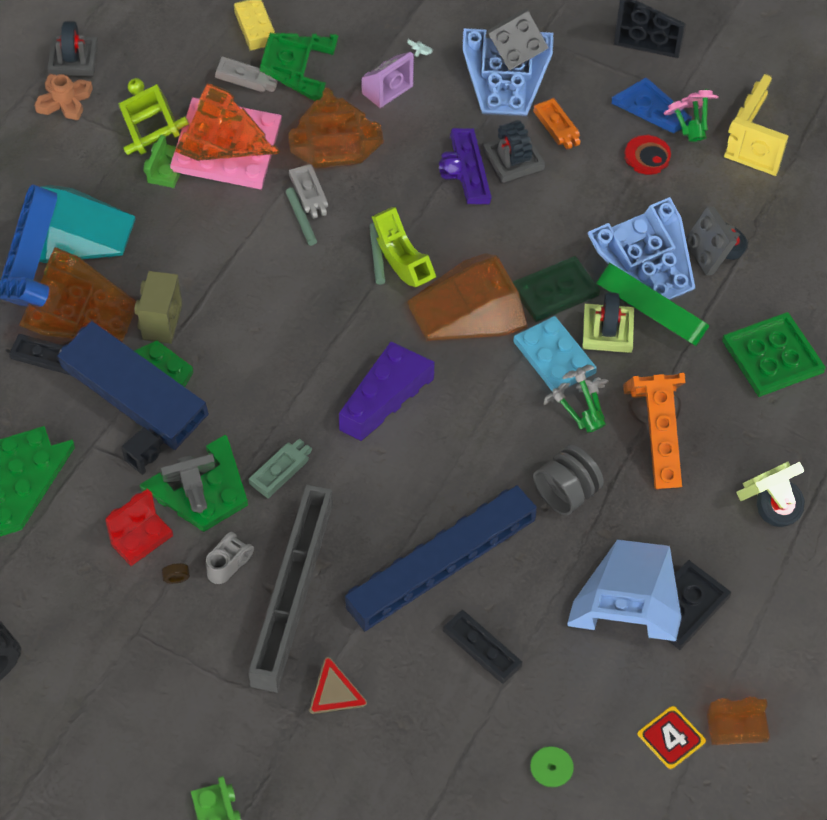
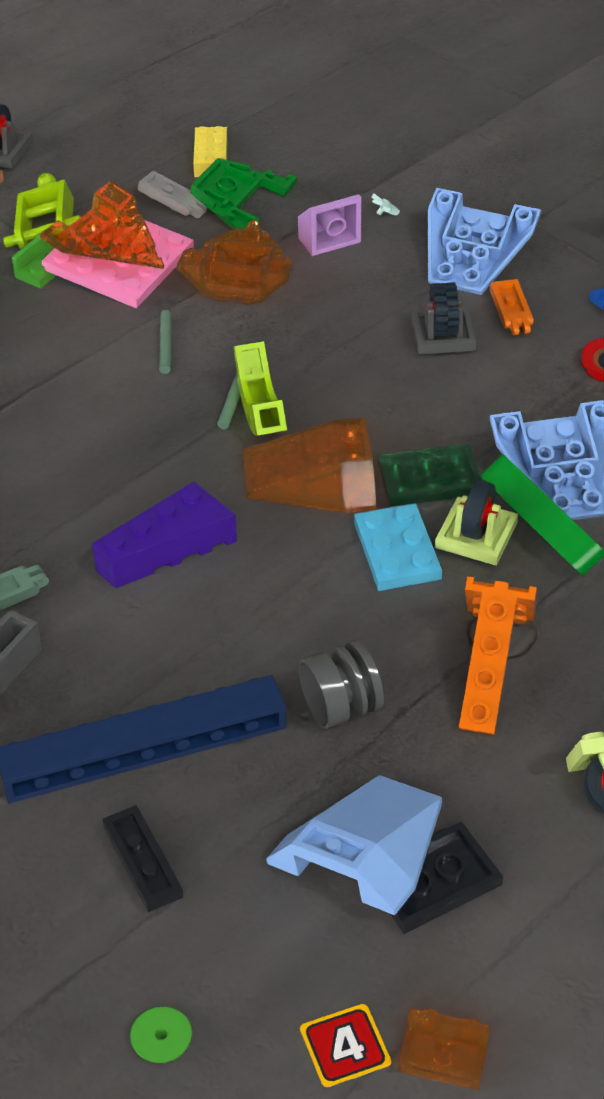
camera: 20 degrees right, 10 degrees down
(309, 190) = (186, 316): light grey hinge -> none
(466, 166) = (380, 327): dark purple plate -> none
(517, 39) = (491, 204): plate -> none
(593, 417) = (408, 626): plant -> none

